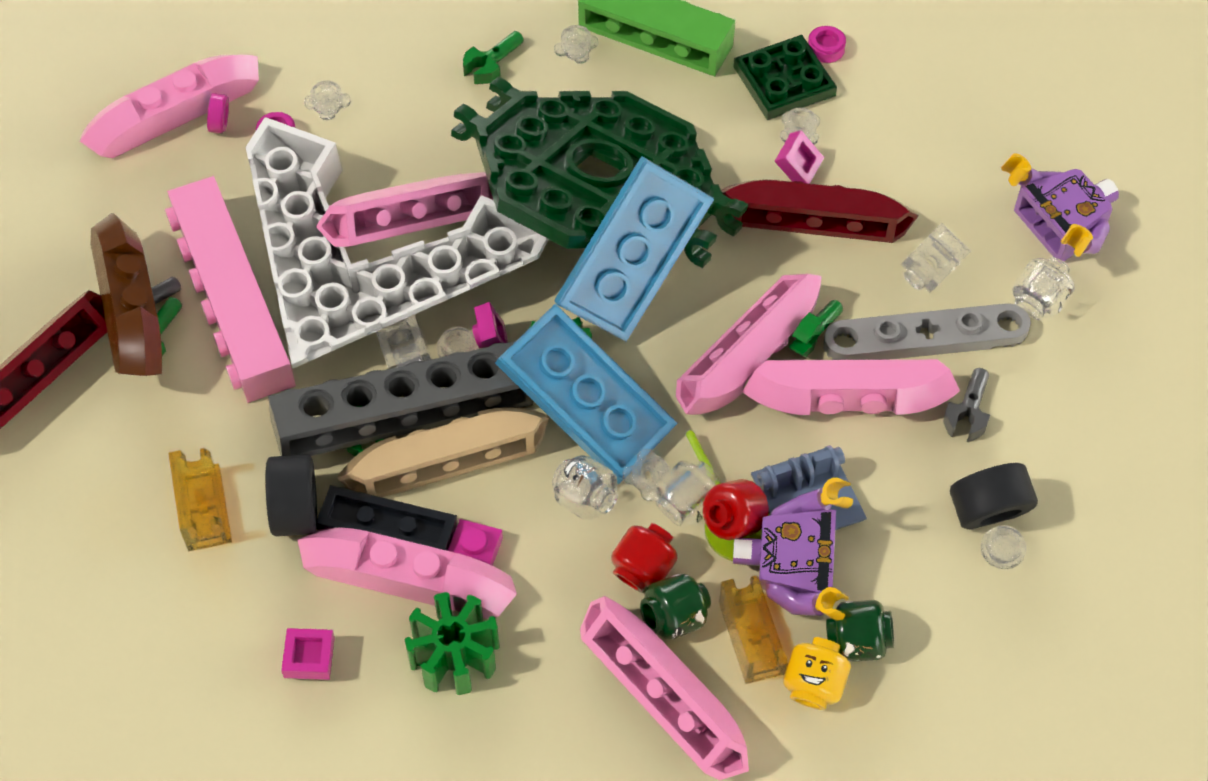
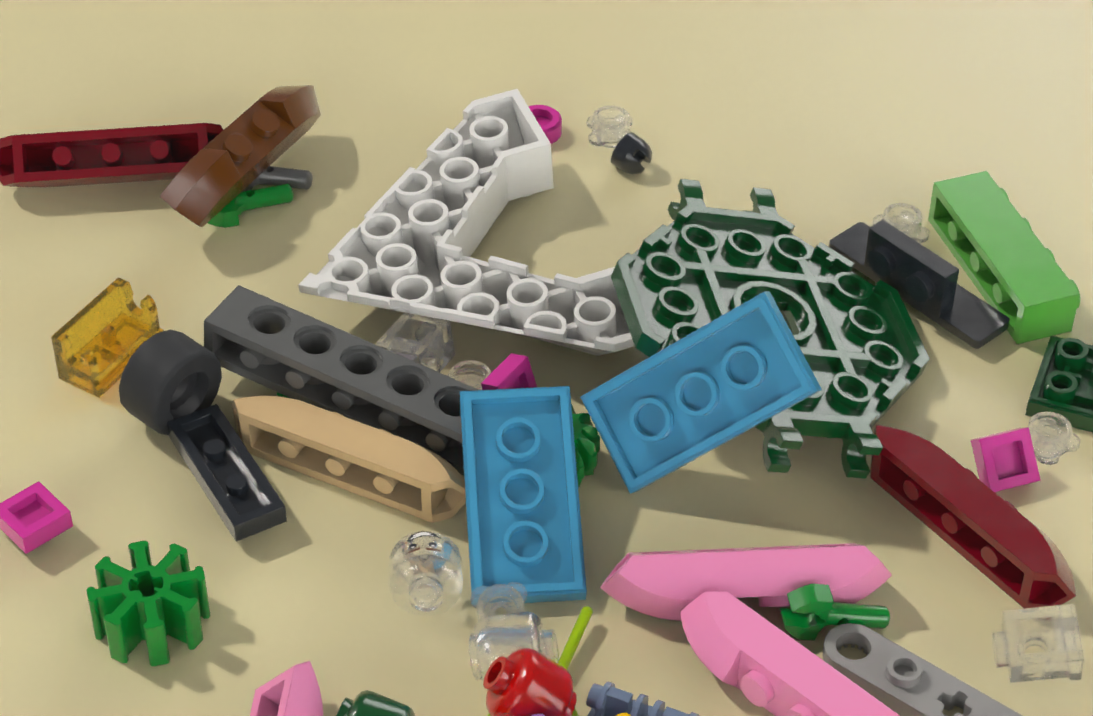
camera: 45 degrees right, 15 degrees down
(168, 103) = (475, 48): bright pink brick -> none
(218, 113) = (501, 75): dark pink tile -> none
(231, 290) = (354, 178): bright pink brick -> none
(362, 110) = (630, 153): none -> black hinge
(403, 209) = (530, 226): bright pink brick -> none
(405, 569) = (195, 519): bright pink brick -> none
(476, 541) = (275, 550): dark pink plate -> none
(488, 59) = (791, 189): green bar -> none
(629, 72) = (921, 280): none -> black bracket
(644, 556) = (402, 667): red head -> none

